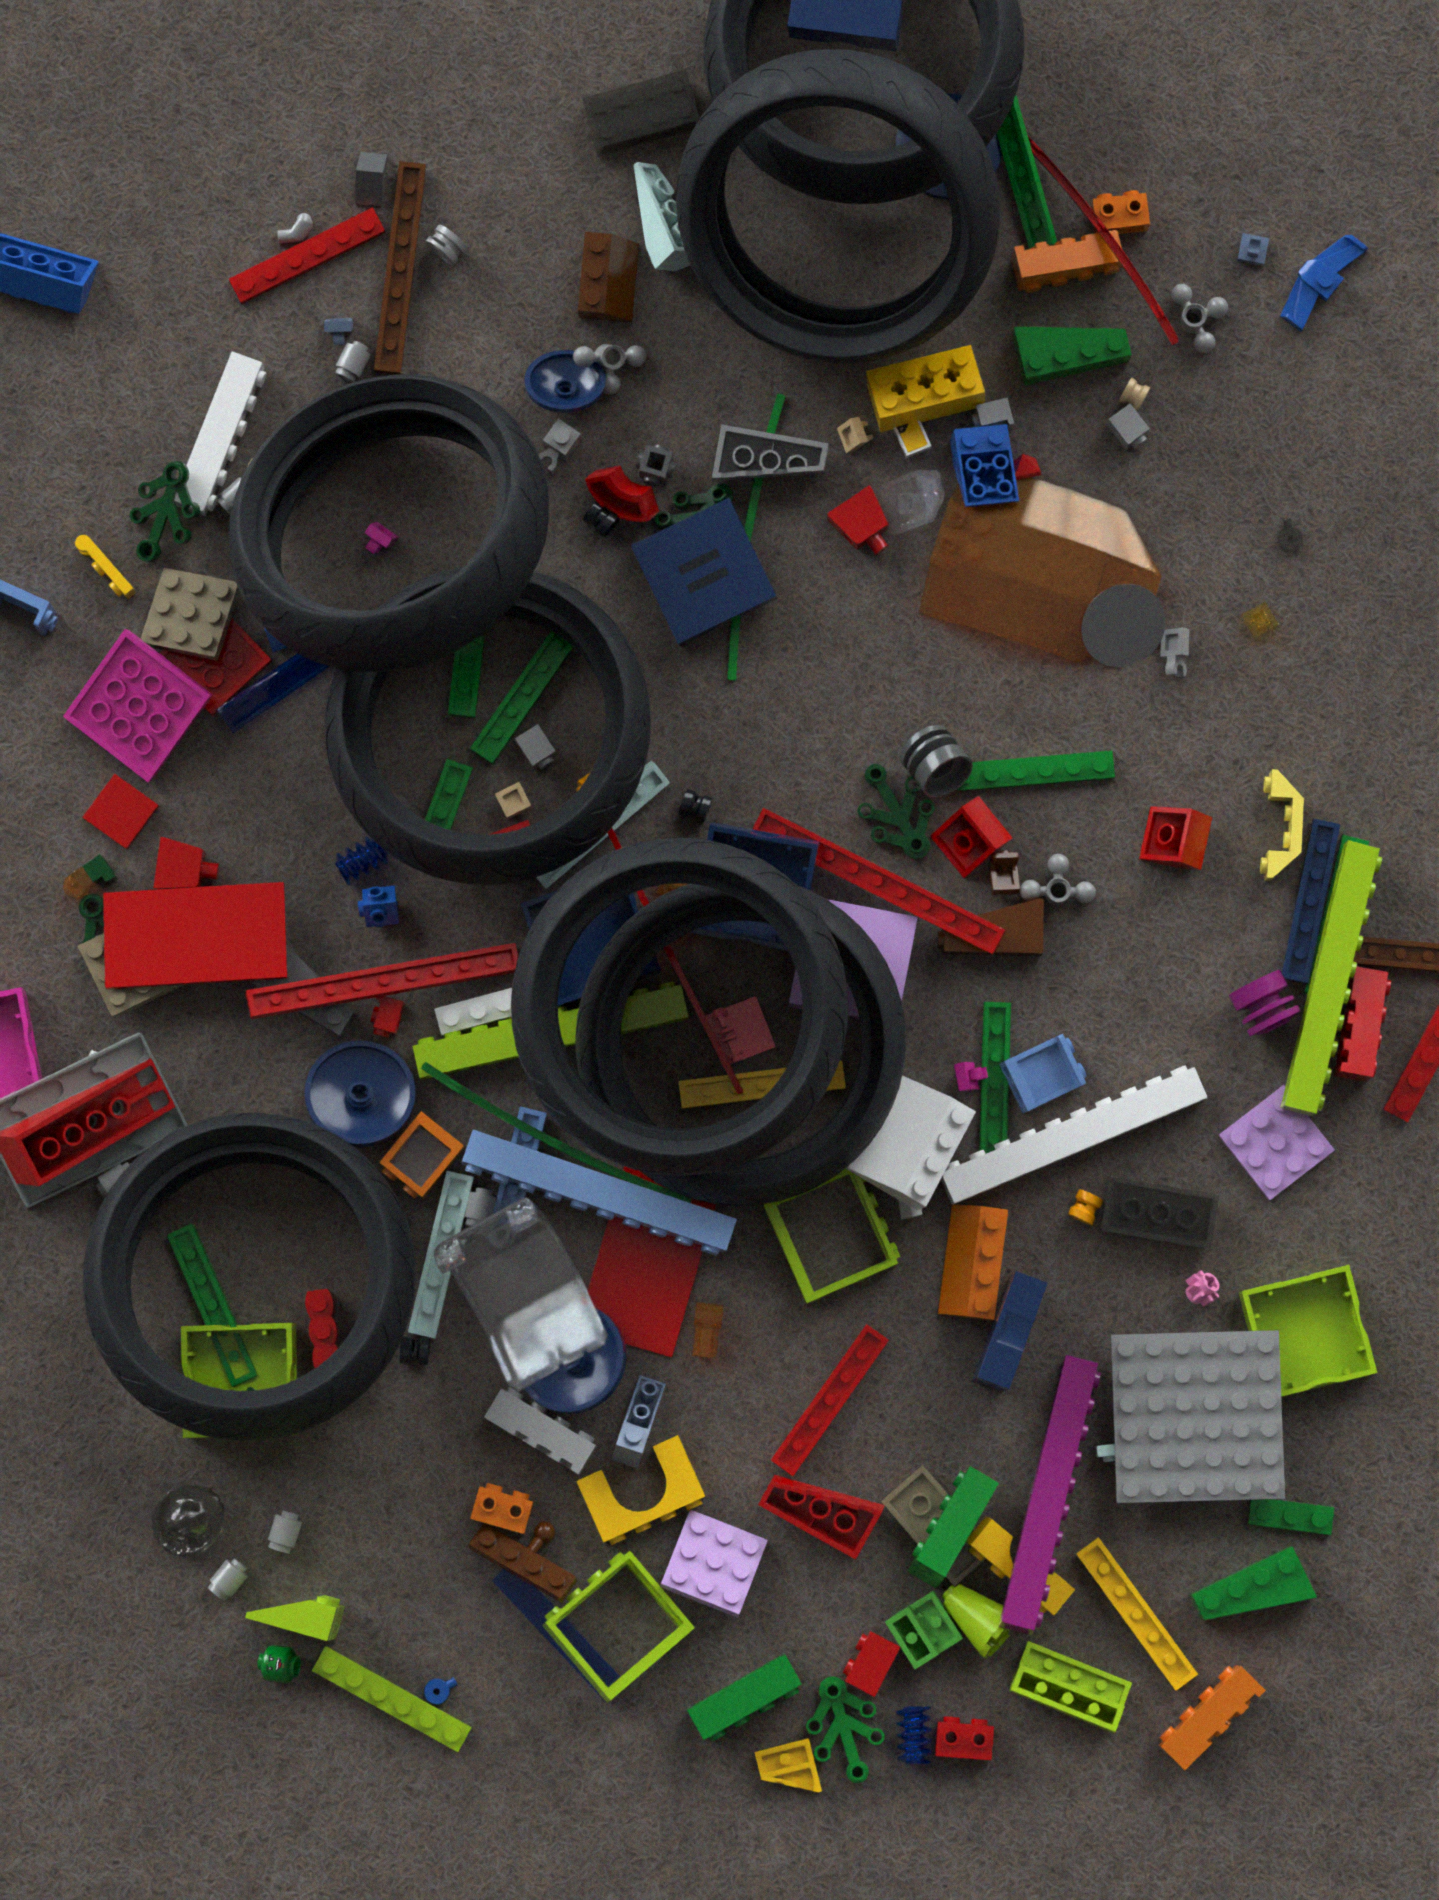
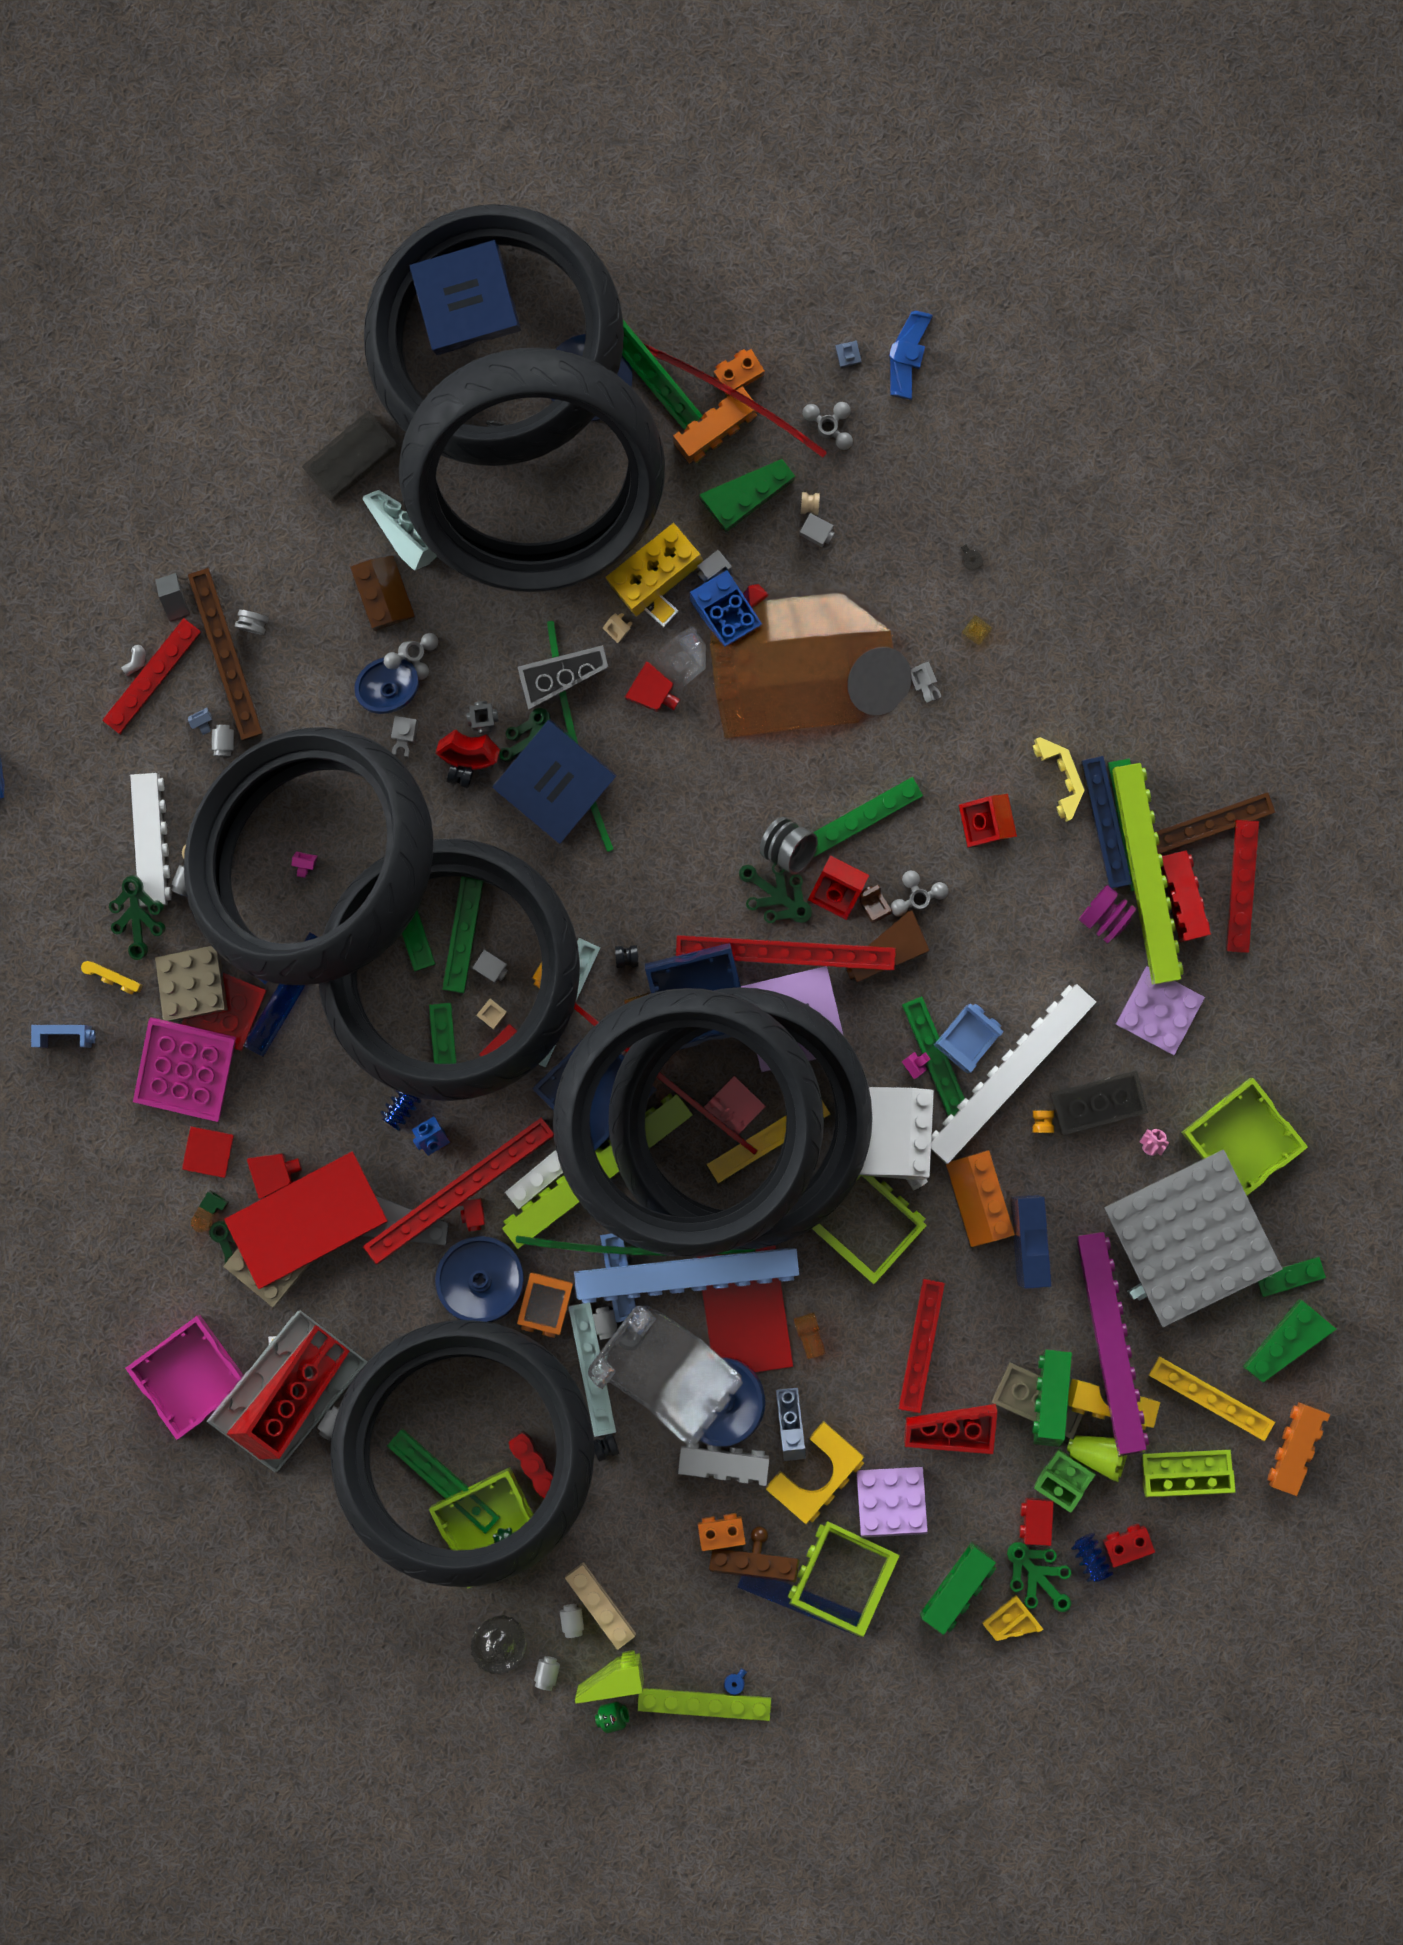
camera: 20 degrees left, 5 degrees up
(325, 1528) = (600, 1605): none -> tan brick

